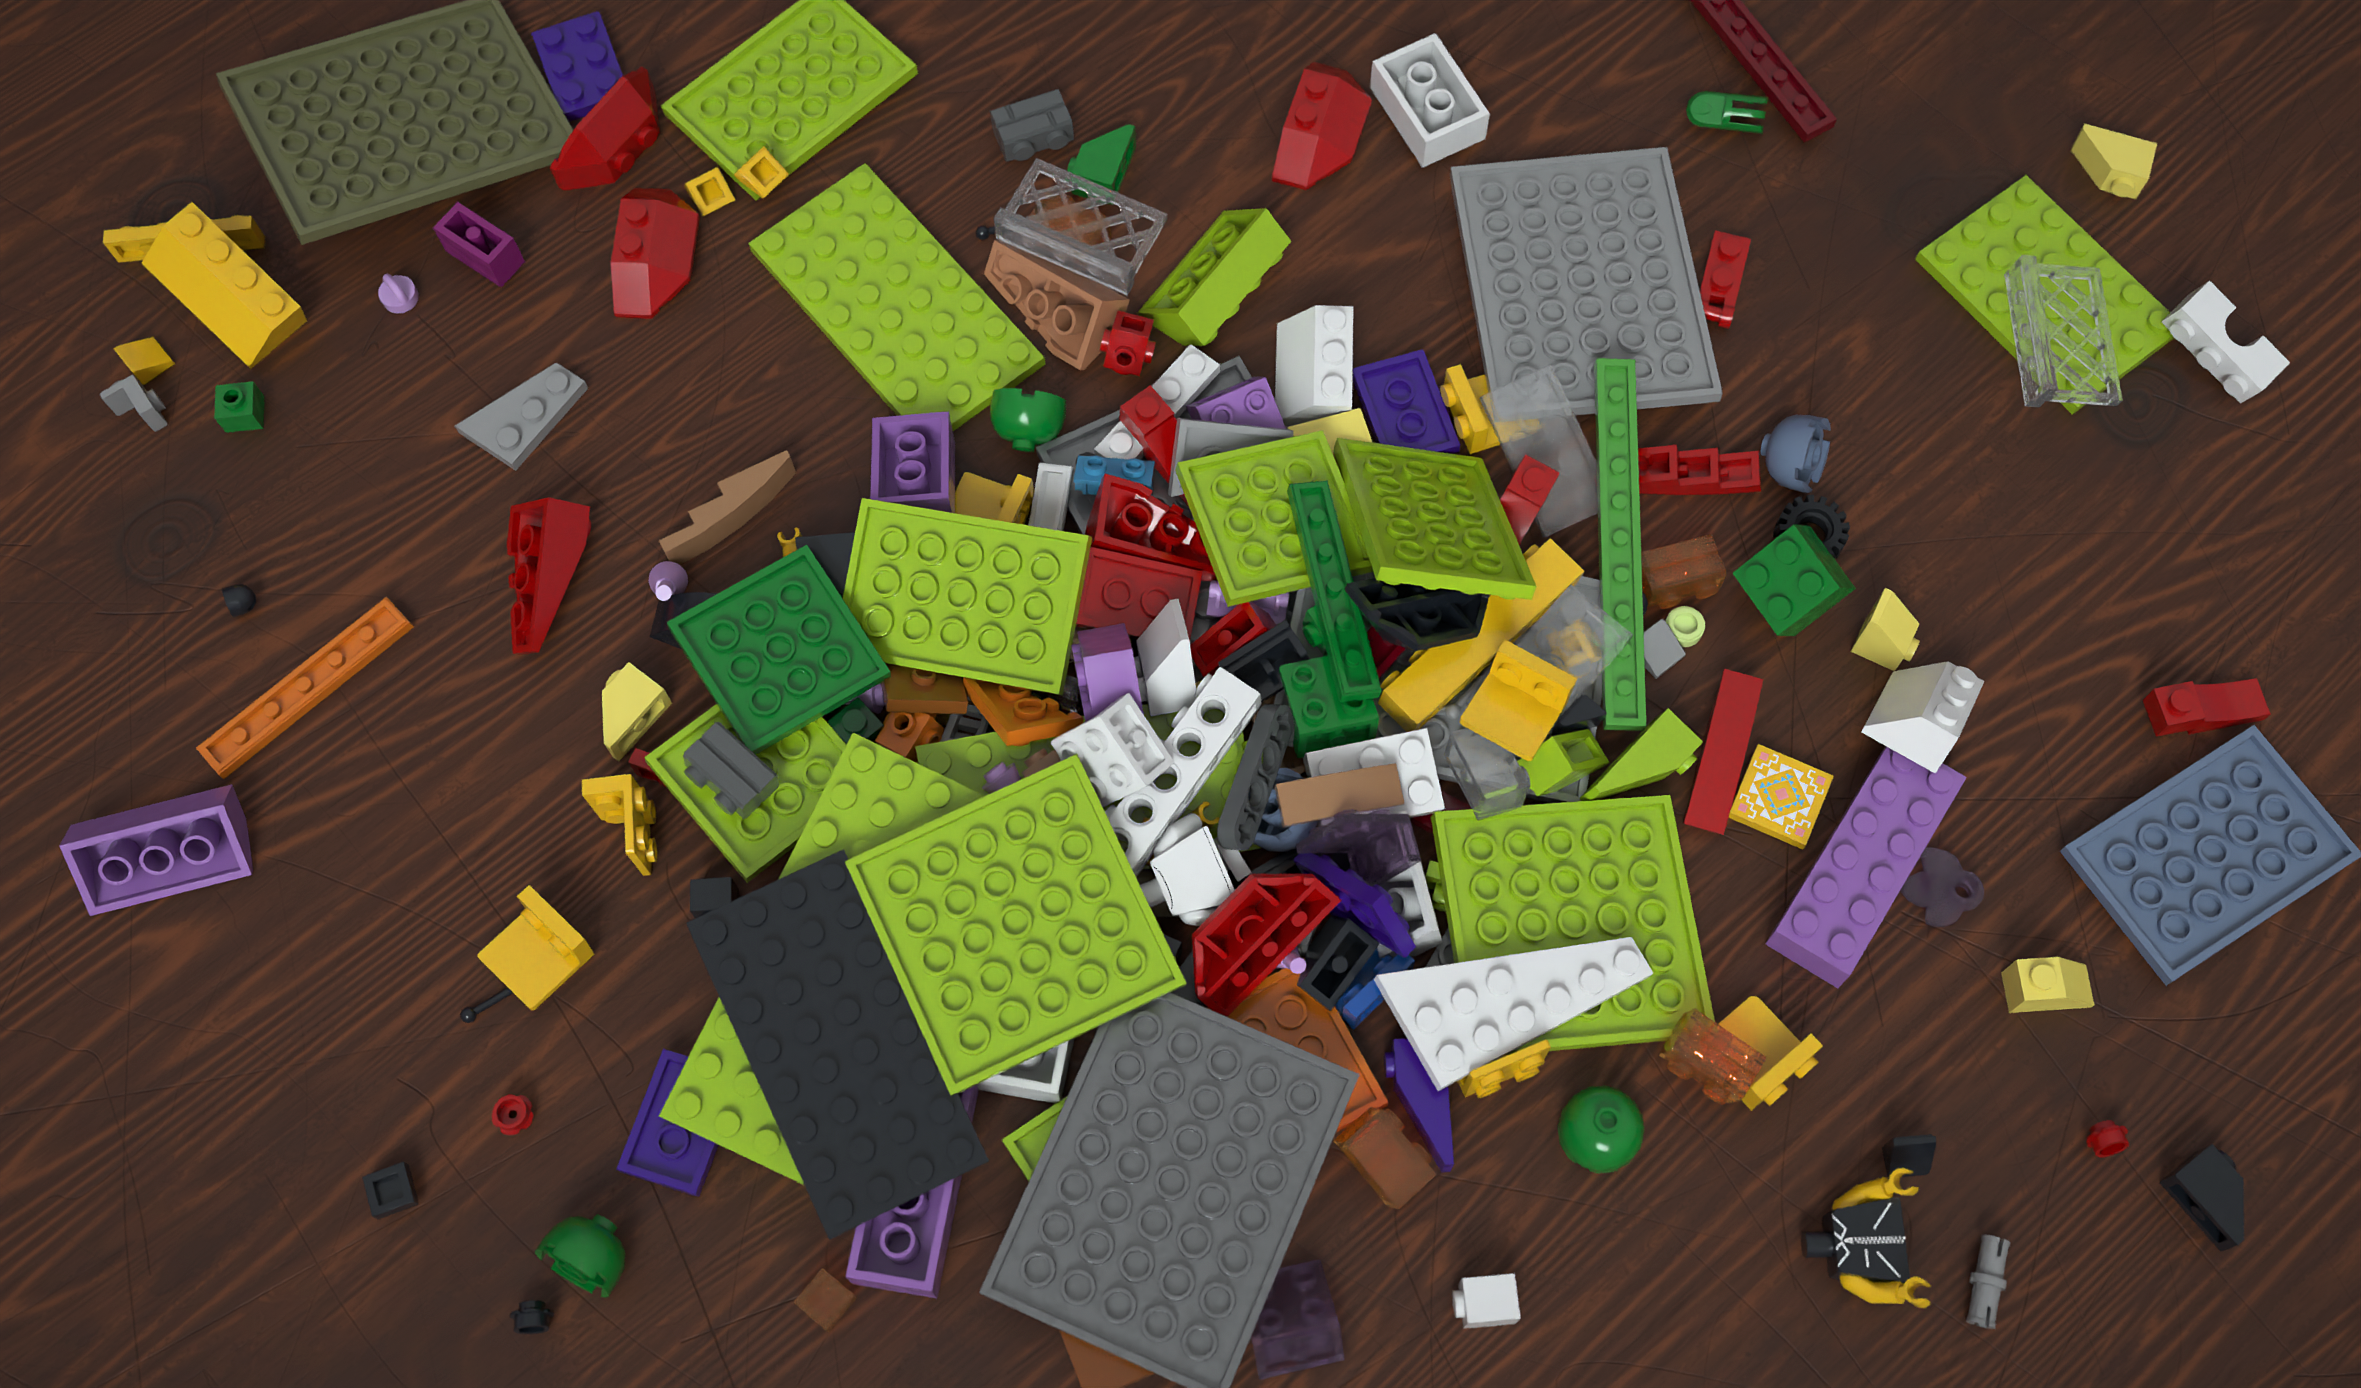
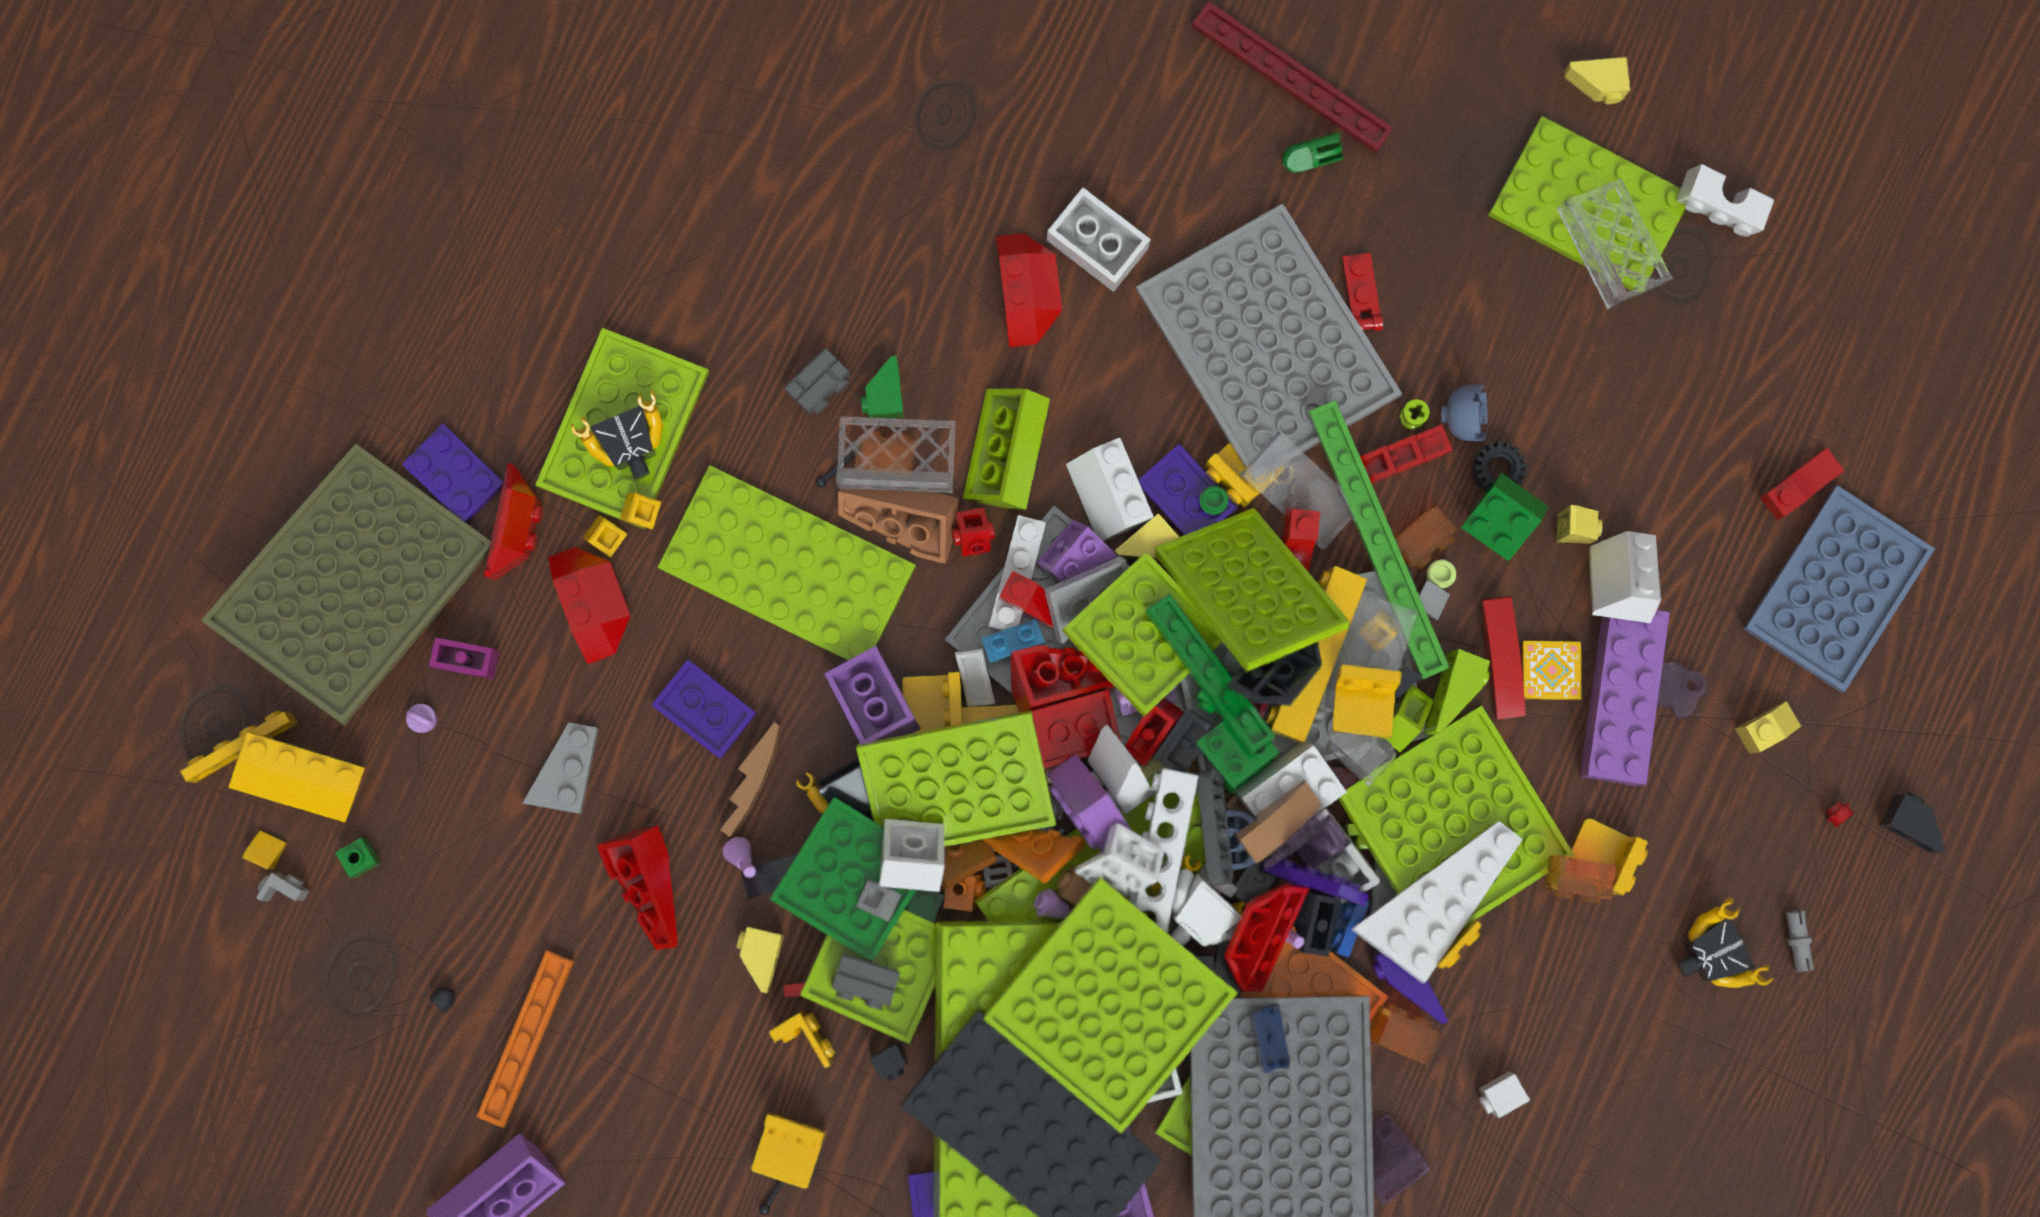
camera: 30 degrees left, 15 degrees up
(717, 412) = (704, 709): none -> dark purple plate
(785, 89) = (625, 438): none -> torso
(796, 683) = (878, 900): none -> light grey slope
(861, 647) = (912, 855): none -> white slope
(1026, 417) = (928, 621): green cylinder -> none
(1203, 1063) = (1269, 1038): none -> dark blue hinge
(1435, 421) = (1213, 500): none -> green plate
(1601, 1129) = (1526, 950): green cylinder -> none
(1728, 429) = (1422, 415): none -> lime bush
(1910, 1153) = (1722, 880): black slope -> none

